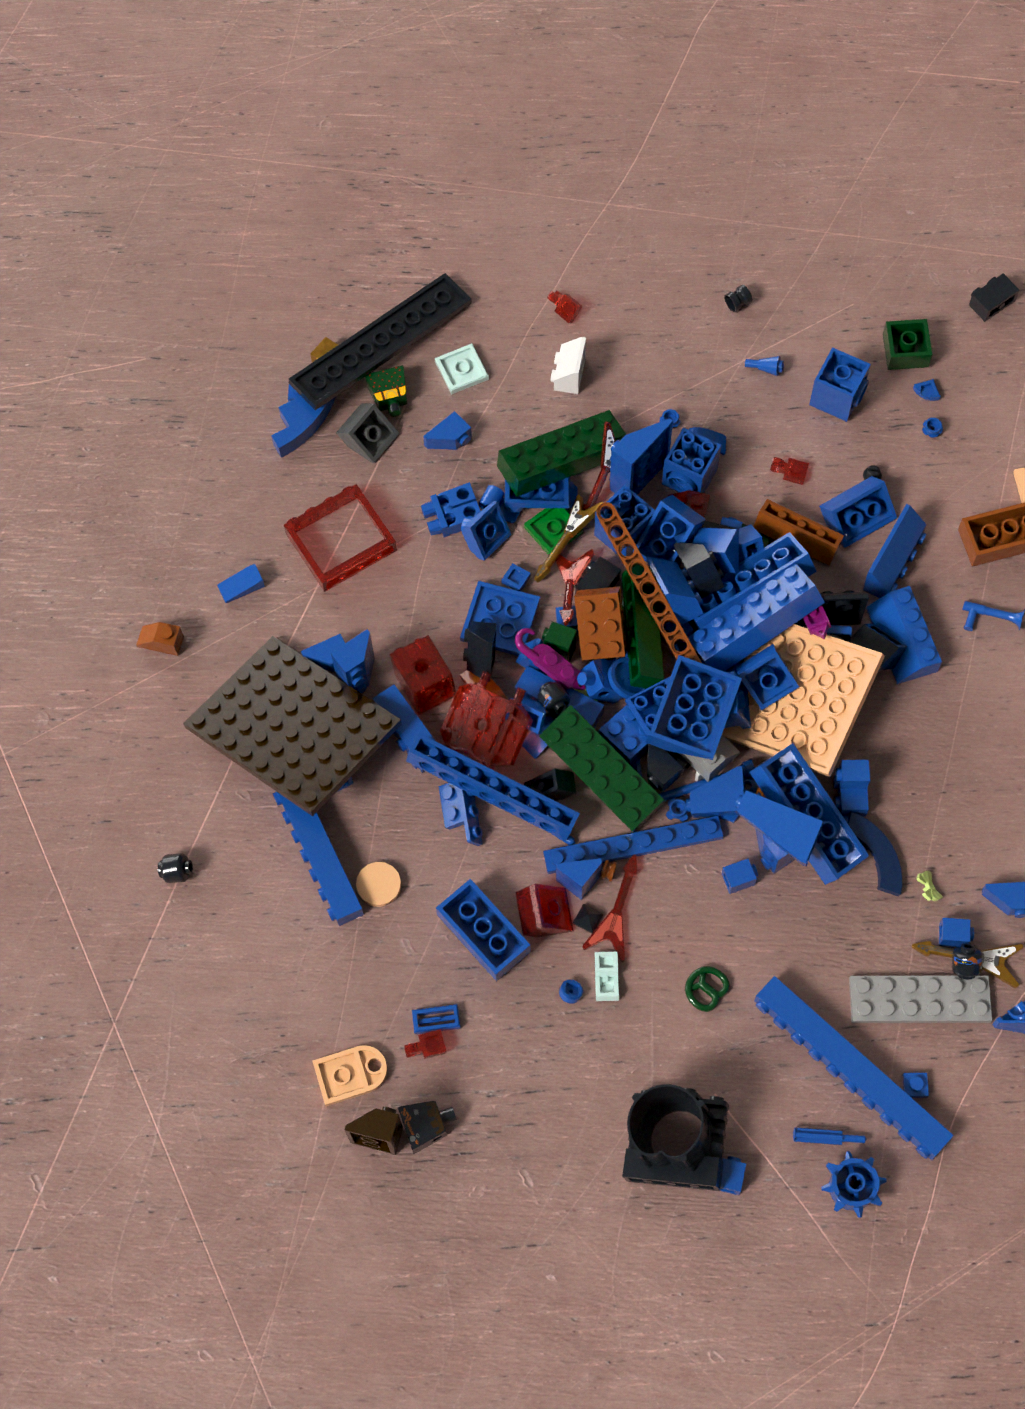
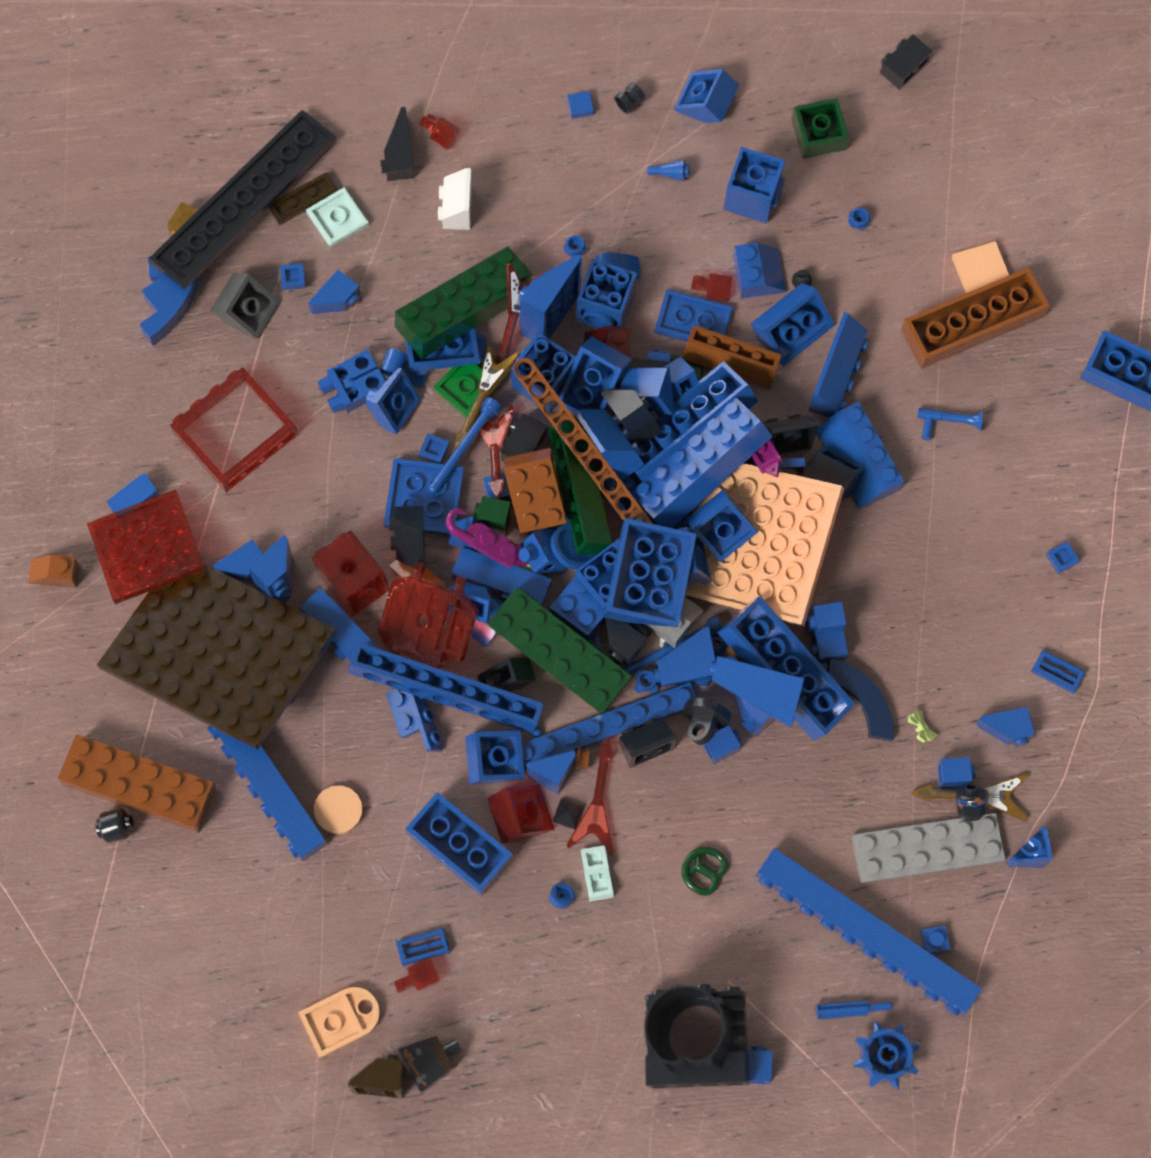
camera: 15 degrees left, 5 degrees up
(201, 833) = (137, 783): none -> dark orange brick
(244, 627) = (145, 546): none -> clear red plate
(388, 389) = (260, 253): dark green torso -> none
(413, 413) = (292, 276): none -> blue plate
(432, 348) = (302, 198): none -> dark brown tile
(524, 318) = (397, 152): none -> black slope
(528, 856) = (494, 757): none -> blue slope
(553, 698) = (496, 580): black head -> none
(571, 549) = (489, 409): none -> blue piece
(670, 863) = (646, 742): none -> black slope
(693, 299) = (580, 104): none -> blue tile
(727, 846) = (705, 716): none -> black tile
(758, 487) = (683, 311): none -> blue tile
(809, 305) = (707, 95): none -> blue slope
(833, 460) = (758, 270): none -> blue slope
(927, 390) = (848, 176): blue tile -> none

